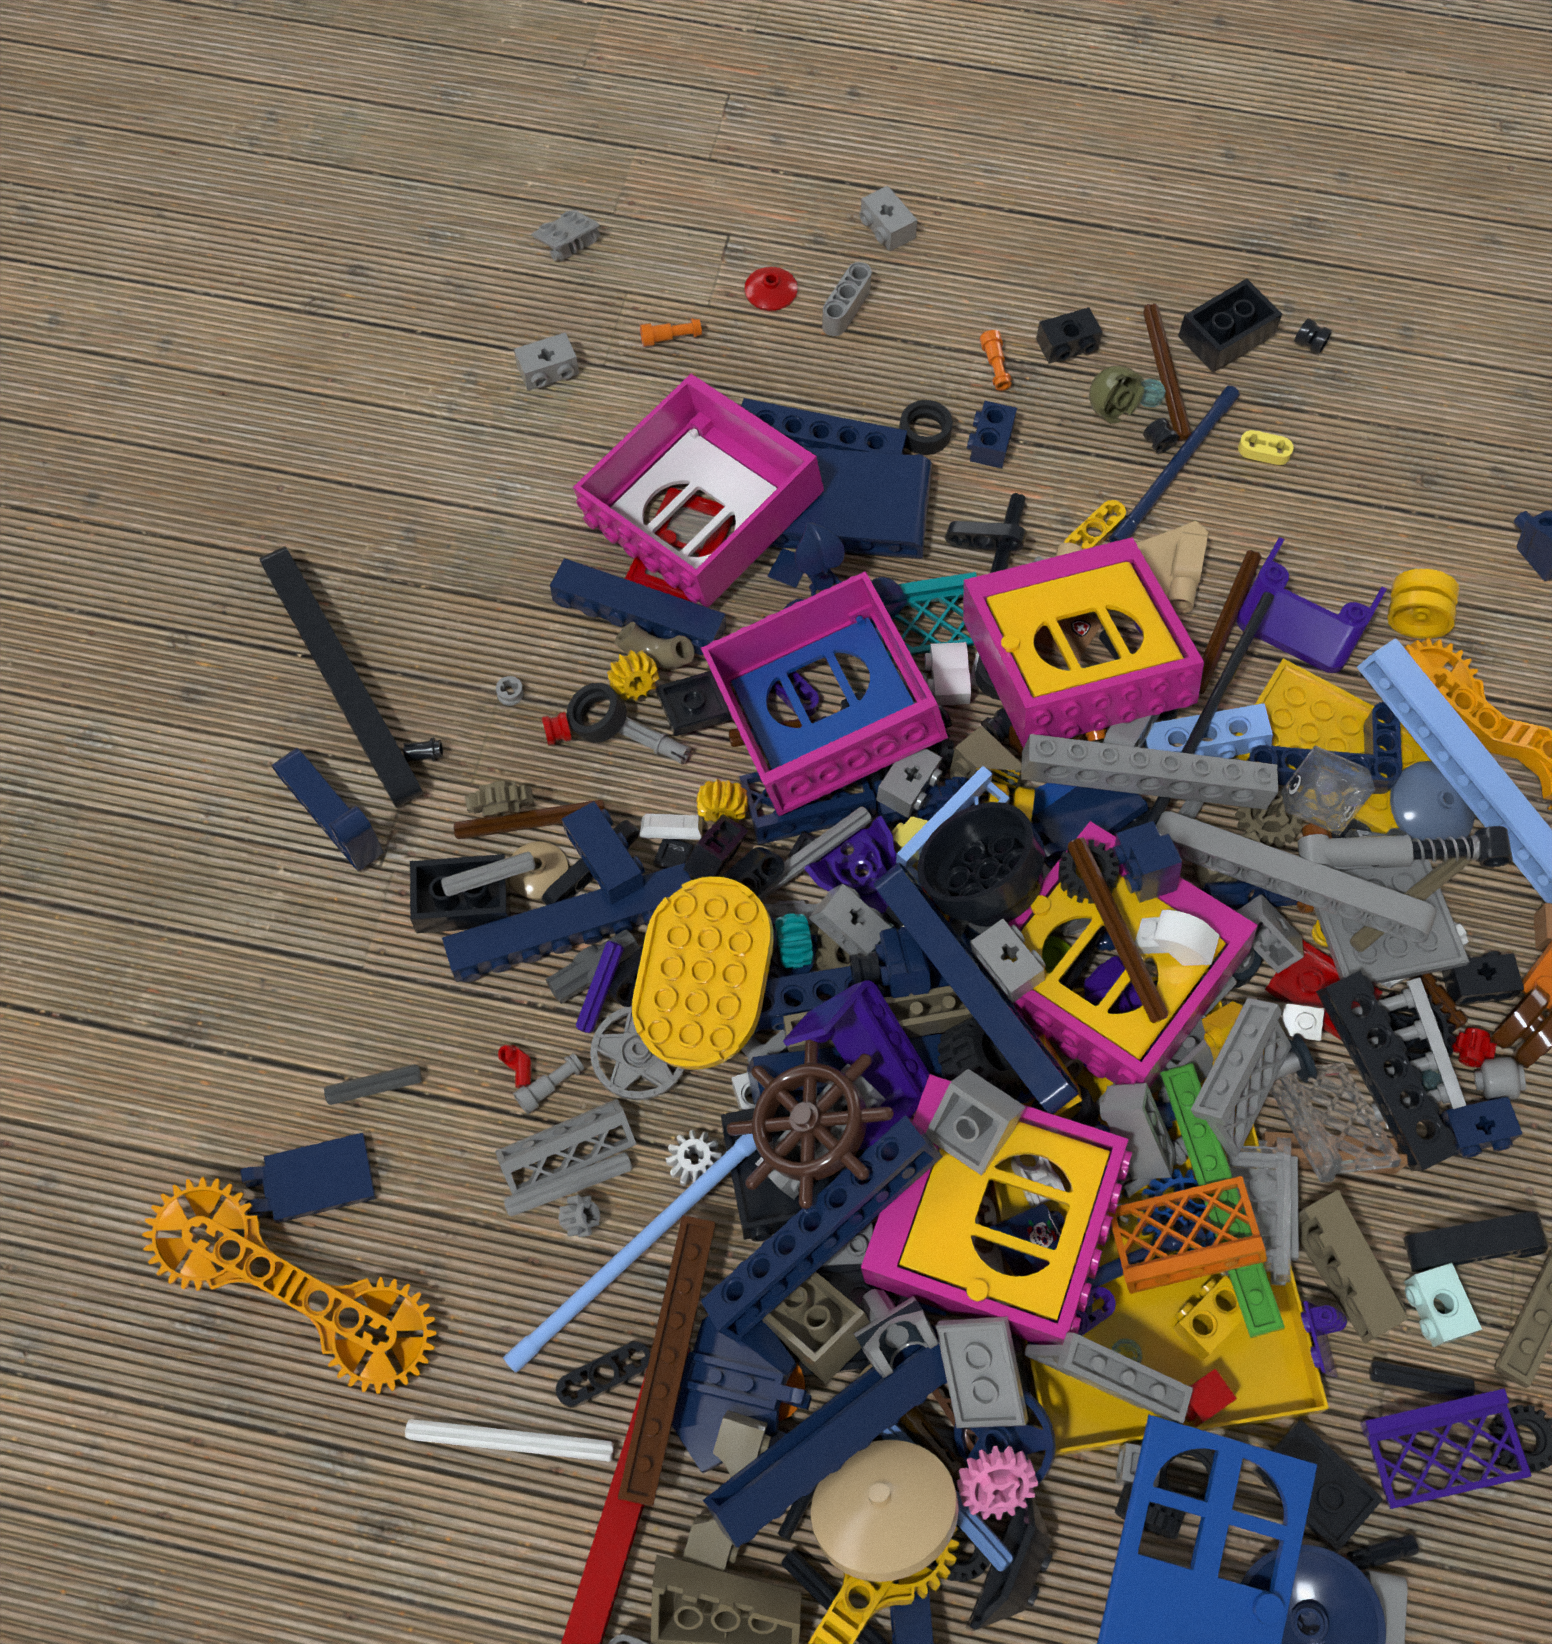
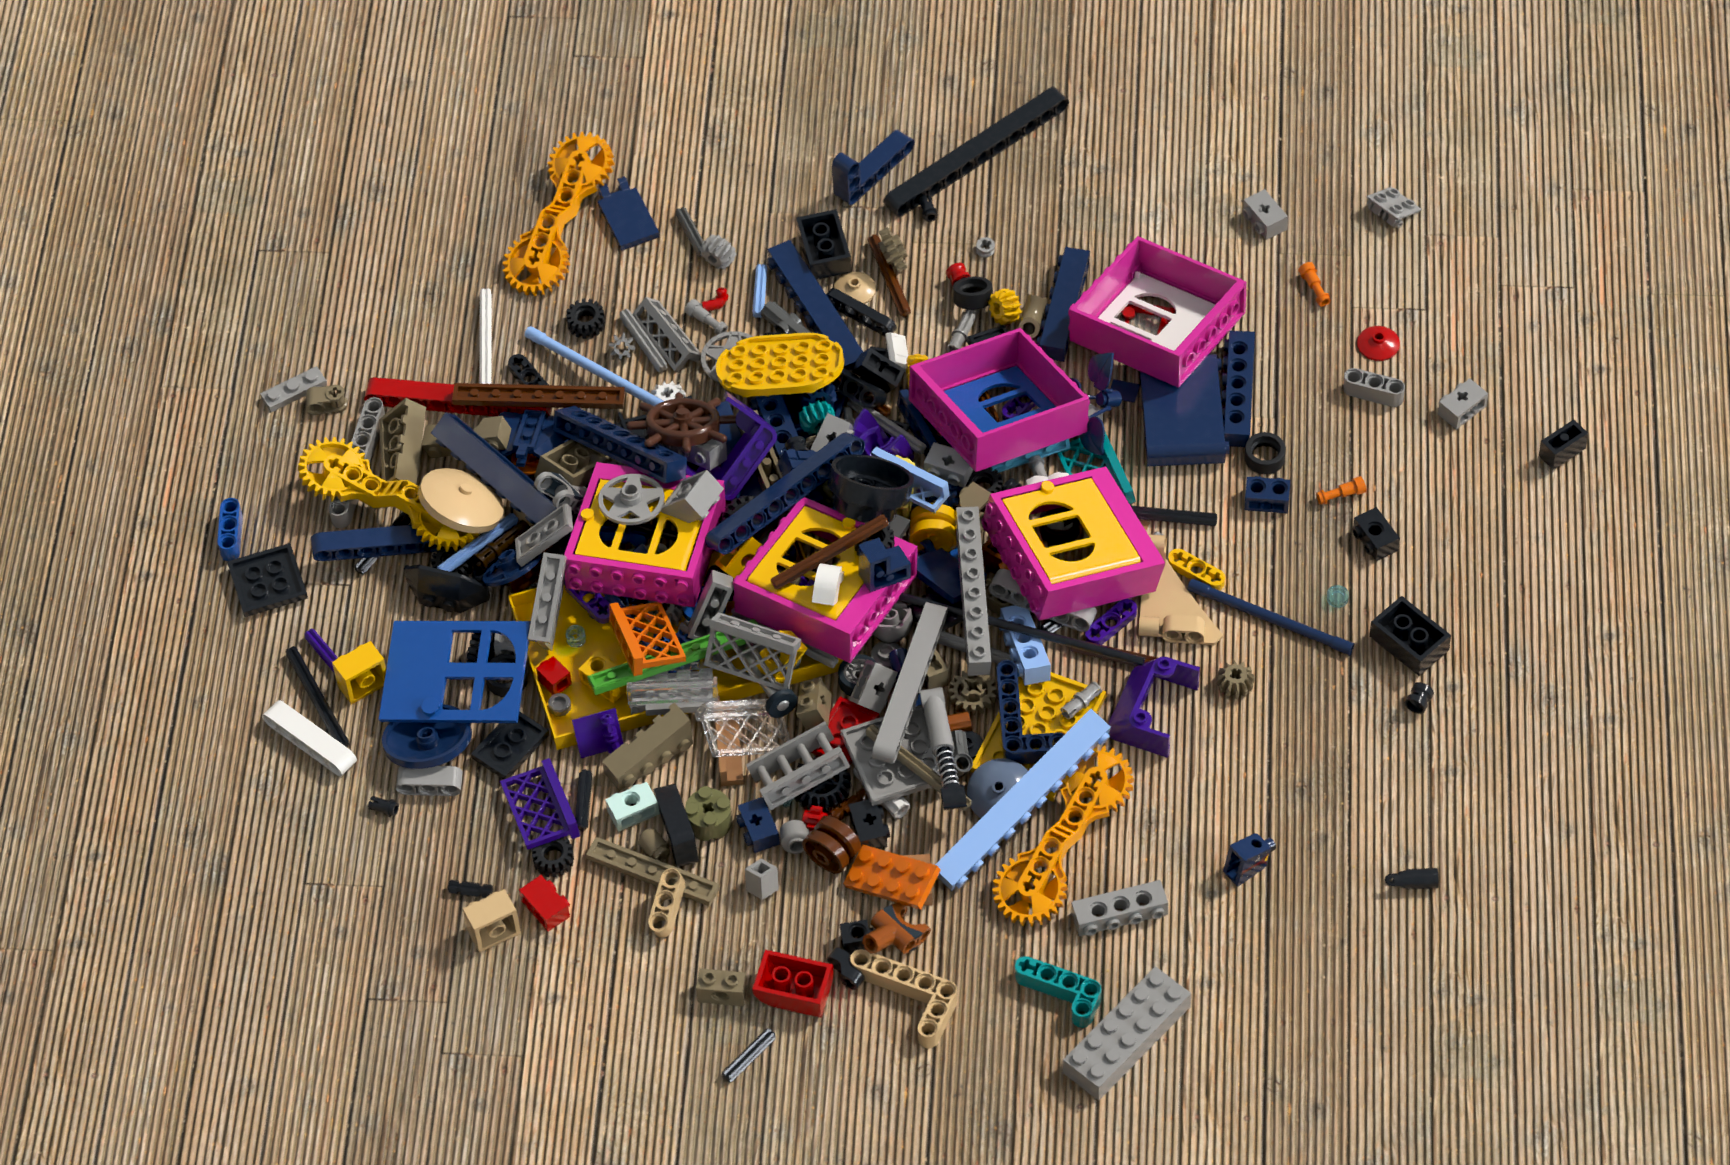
camera: 85 degrees right, 10 degrees down
(433, 1045) = (718, 251): none -> light grey gear
(488, 873) = (832, 248): light grey axle -> none
(492, 1253) = (585, 309): none -> black tyre
(513, 999) = (759, 290): none -> light blue axle
(599, 987) = (772, 326): dark purple axle -> none
(604, 851) = (861, 307): dark blue brick -> none
(961, 1216) = (631, 499): none -> light grey wheel
(971, 134) = (1563, 444): none -> black brick
(993, 1482) = (483, 557): bright pink gear -> none
(1000, 535) = (1168, 495): black beam -> none
(1013, 978) = (802, 503): light grey brick -> none
(1115, 392) = (1322, 565): olive cylinder -> none
(1160, 435) = (1293, 602): black wheel -> none
(1166, 371) = (1361, 604): reddish brown axle -> none
(1250, 1395) = (559, 704): none -> flat silver tile
(1265, 447) = (1307, 676): light yellow beam -> none
(1272, 515) = (1235, 679): none -> dark tan gear
(1289, 671) = (1081, 700): none -> light grey pin
(1327, 790) = (985, 705): clear brick -> none
(1384, 1552) = (474, 782): black axle -> none
(1386, 1091) = (780, 736): black brick -> none
(1423, 603) = (1168, 771): yellow wheel -> none
(1468, 1175) = (709, 813): none -> olive brick
(1510, 1281) = (654, 844): none -> dark tan brick

